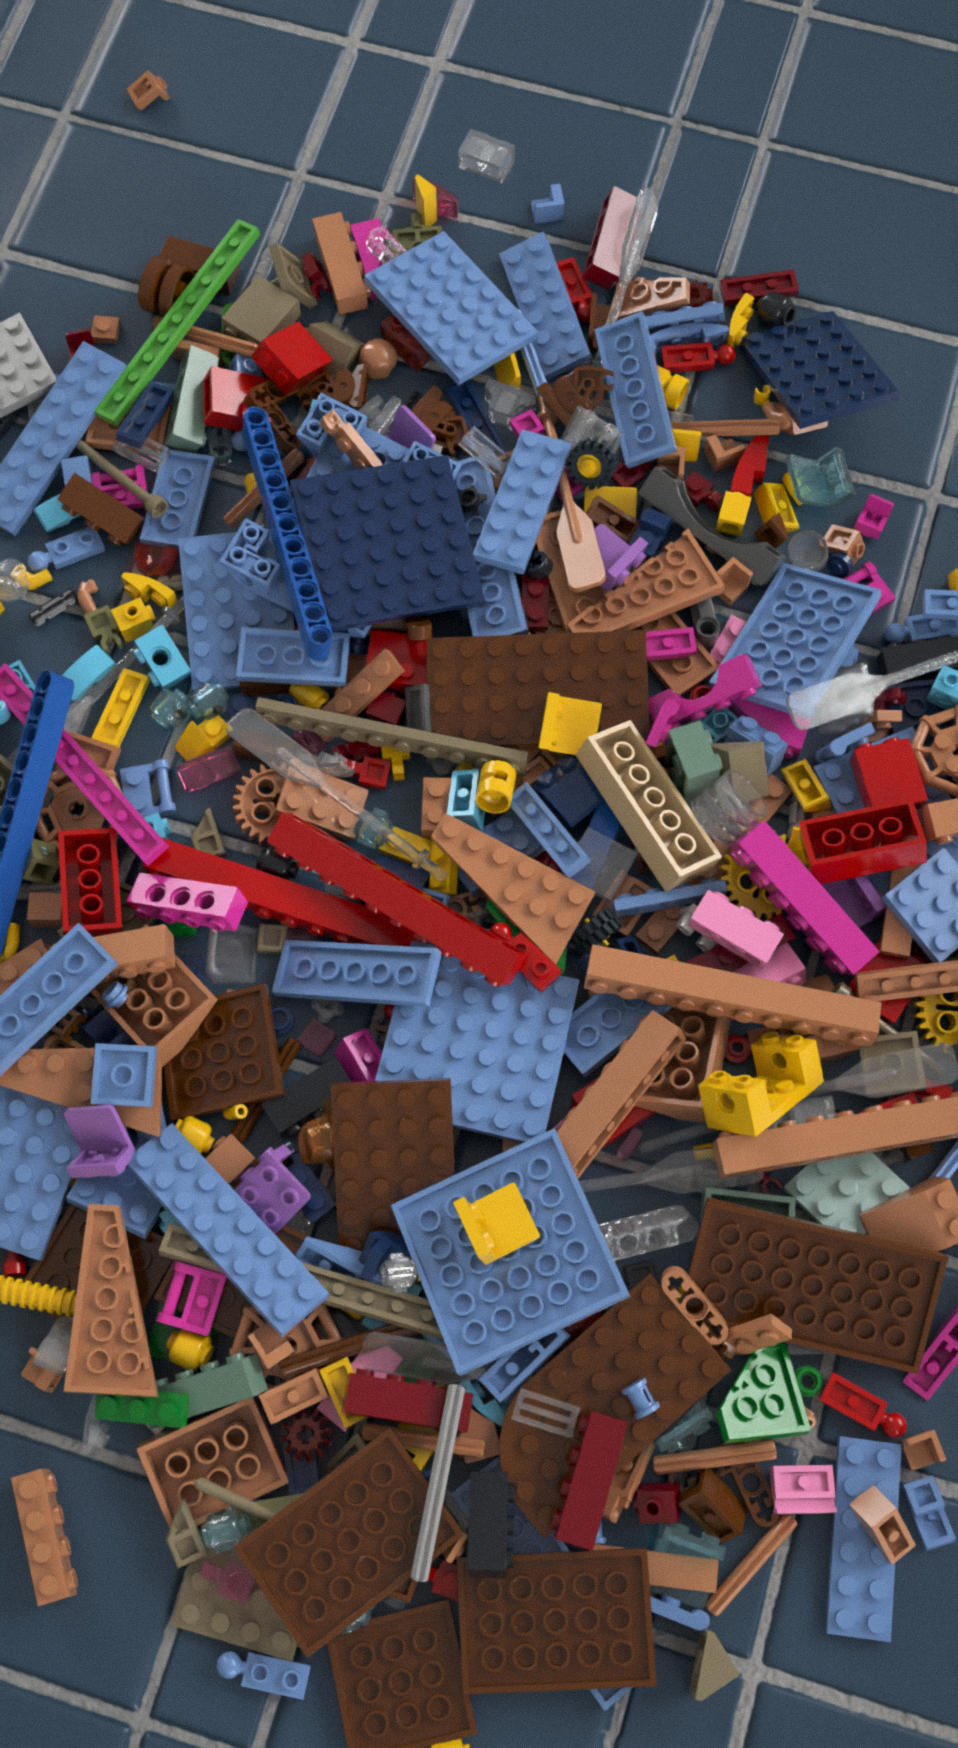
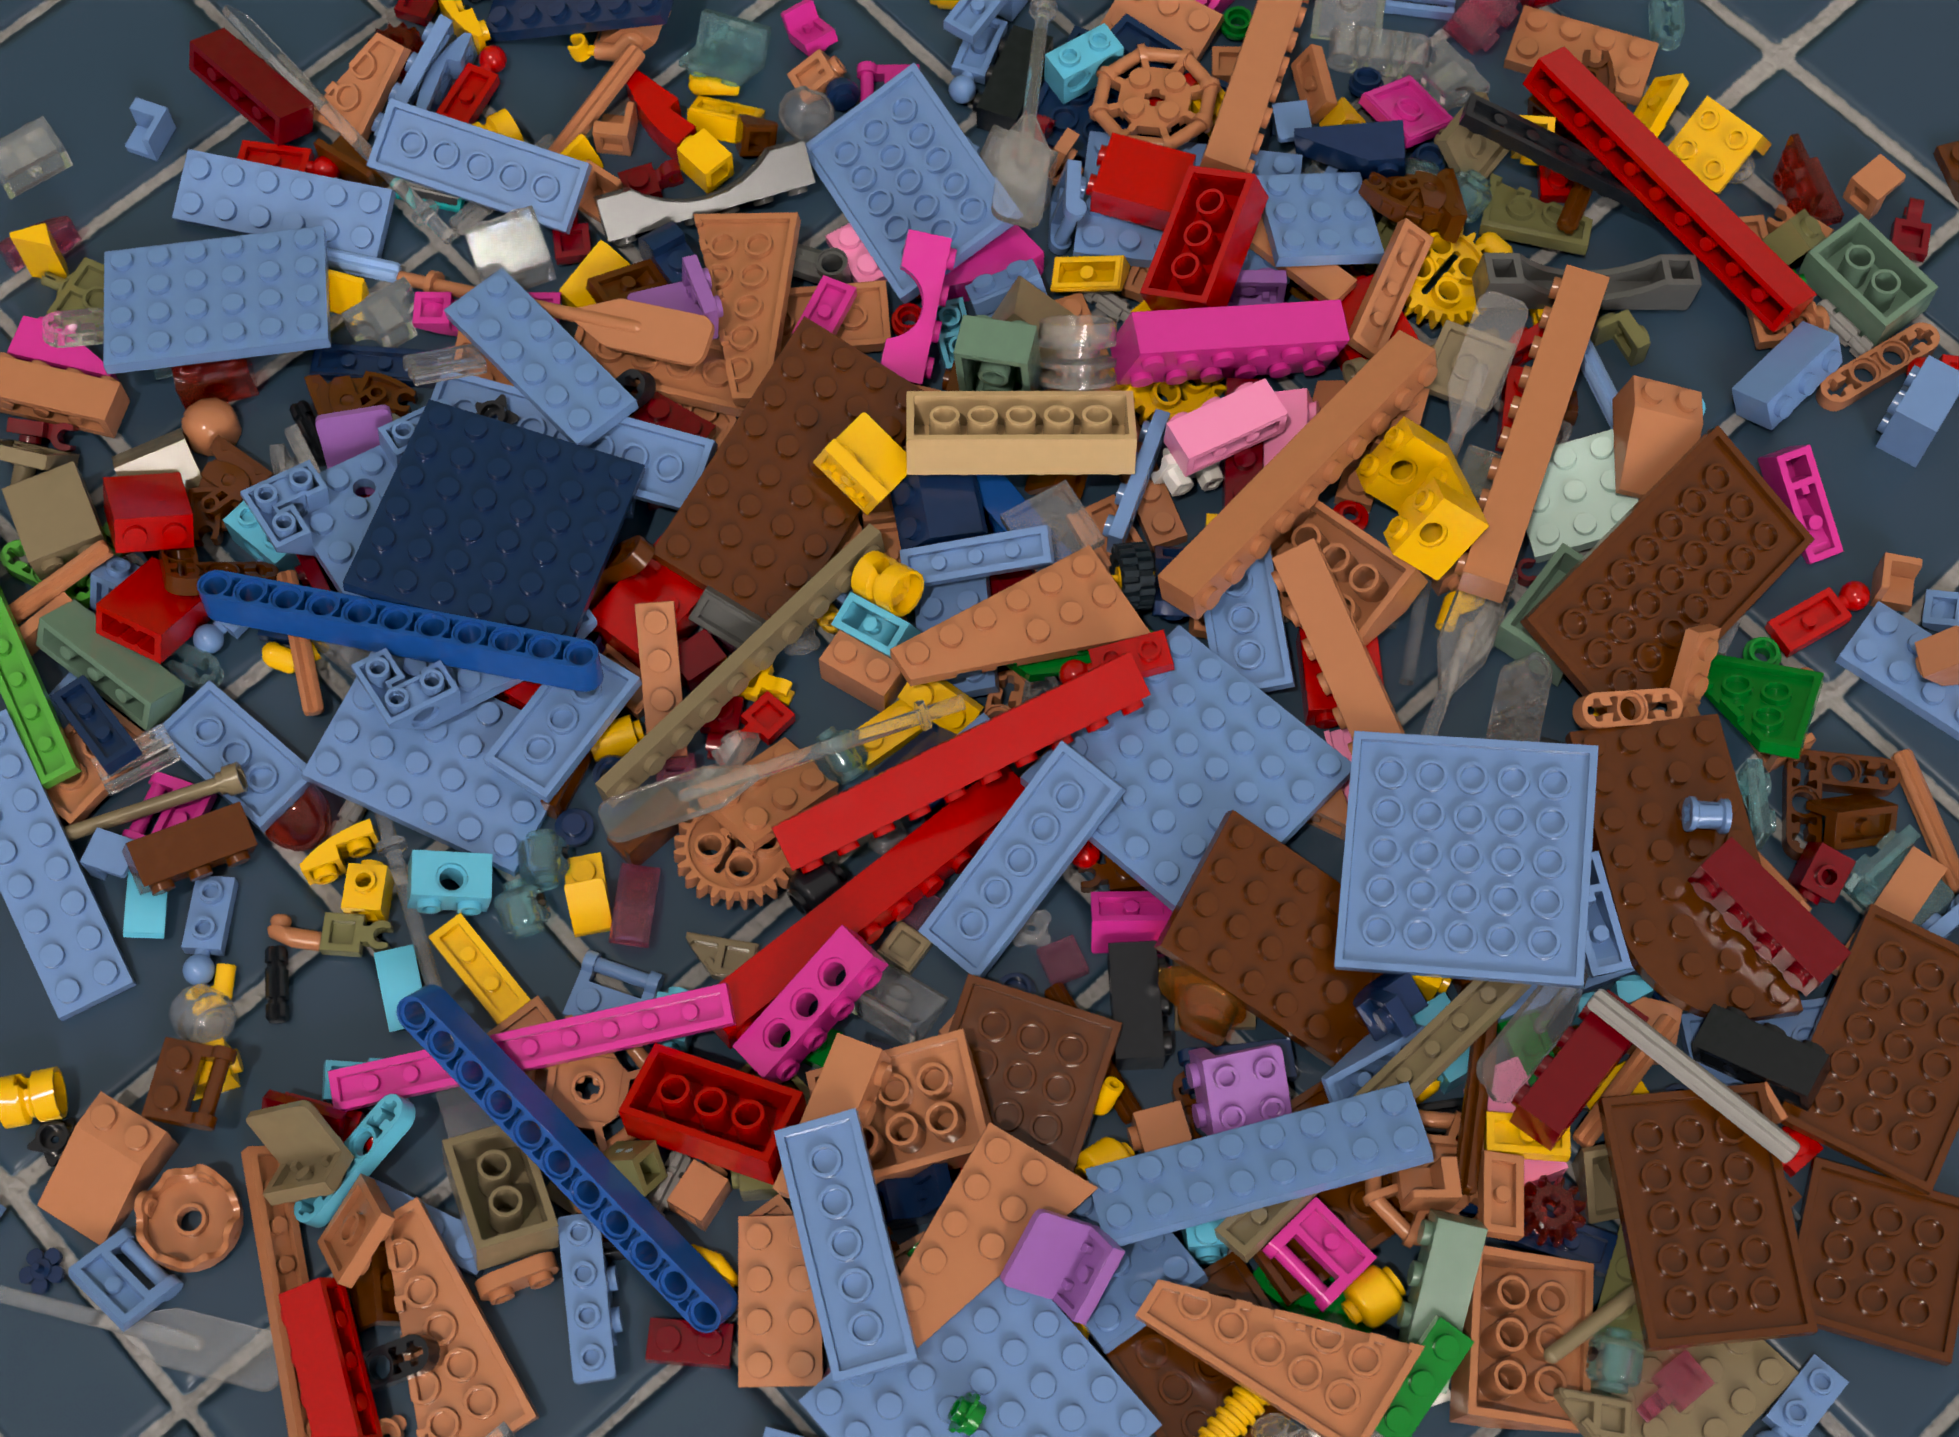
camera: 60 degrees left, 5 degrees down
(115, 995) = (884, 1147): medium blue plate -> none
(124, 1075) = (1005, 1177): medium blue plate -> none
(349, 441) = (334, 495): nougat hinge -> none
(398, 1273) = (1424, 995): clear gear -> none
(497, 1223) = (1434, 845): yellow bracket -> none
(571, 1421) = (1691, 903): clear tile -> none
(576, 390) = (431, 234): reddish brown piece -> none
(591, 463) = (543, 261): black wheel -> none
(629, 1144) = (1397, 685): clear pink tile -> none
(660, 728) = (934, 370): dark pink plate -> none
(714, 1457) = (1802, 786): nougat axle -> none
(736, 580) = (788, 198): nougat panel -> none
(803, 1489) = (1878, 722): bright pink plate -> none

